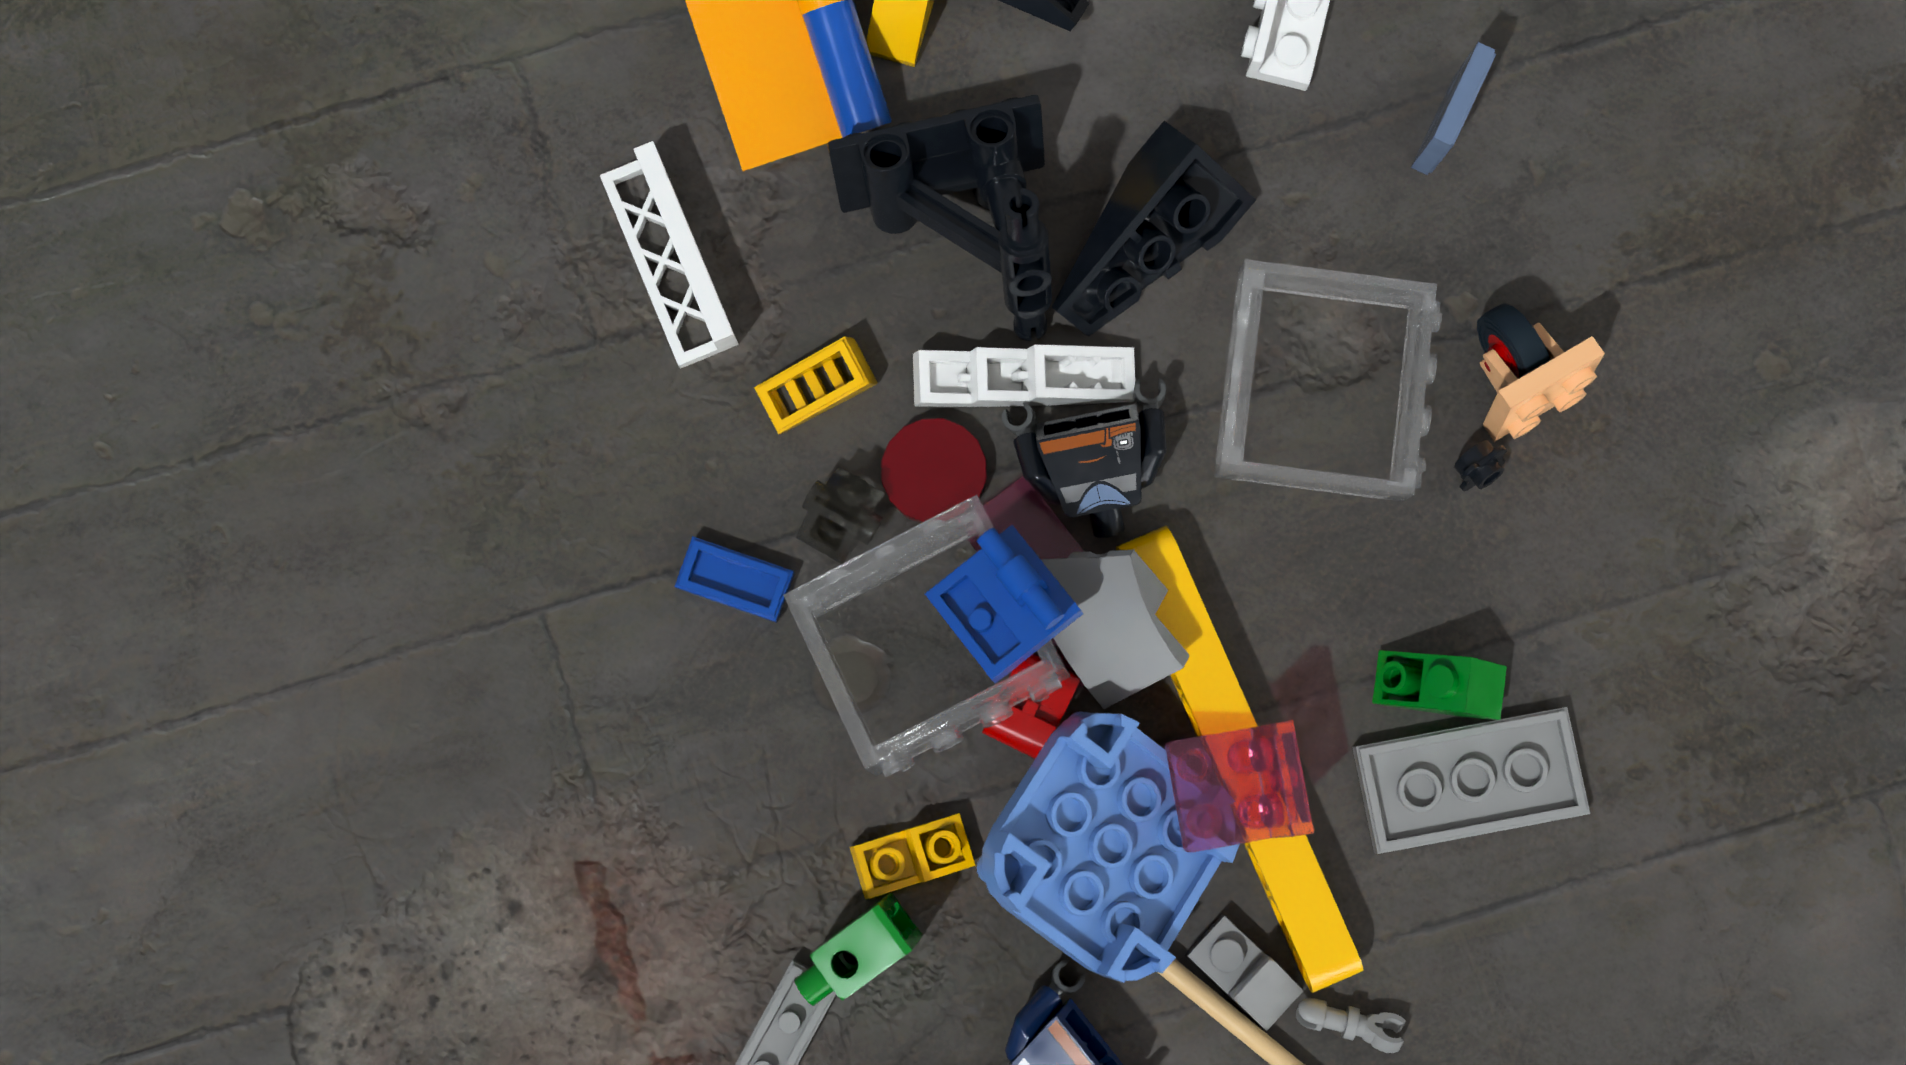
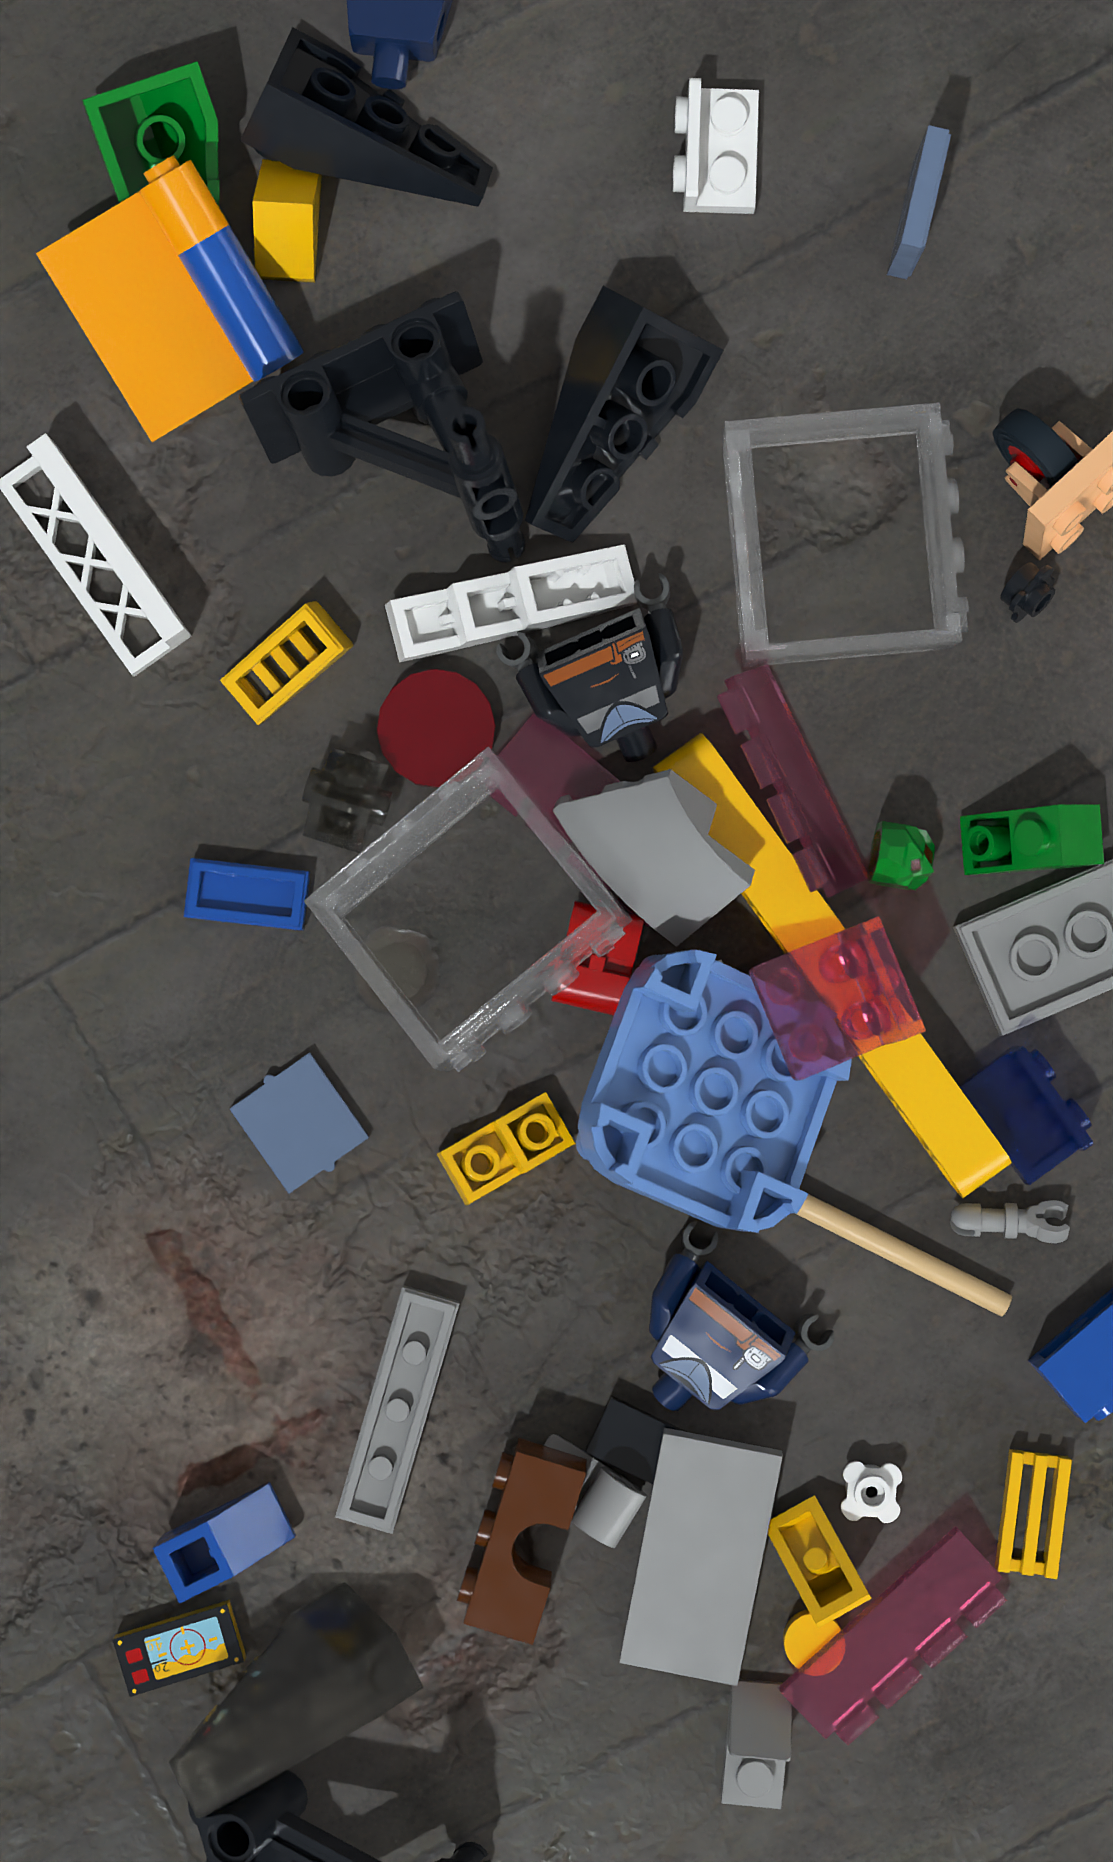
camera: 10 degrees left, 5 degrees up
(734, 792) = (299, 1122): none -> sand blue piece
(876, 940) = (486, 1246): torso -> none
(1003, 602) = (542, 859): blue plate -> none
(1243, 604) = (803, 801): none -> clear pink windscreen
(1244, 972) = (886, 1192): light grey slope -> none
(1319, 673) = (900, 856): none -> green rock
(1387, 928) = (1027, 1112): none -> clear blue bracket

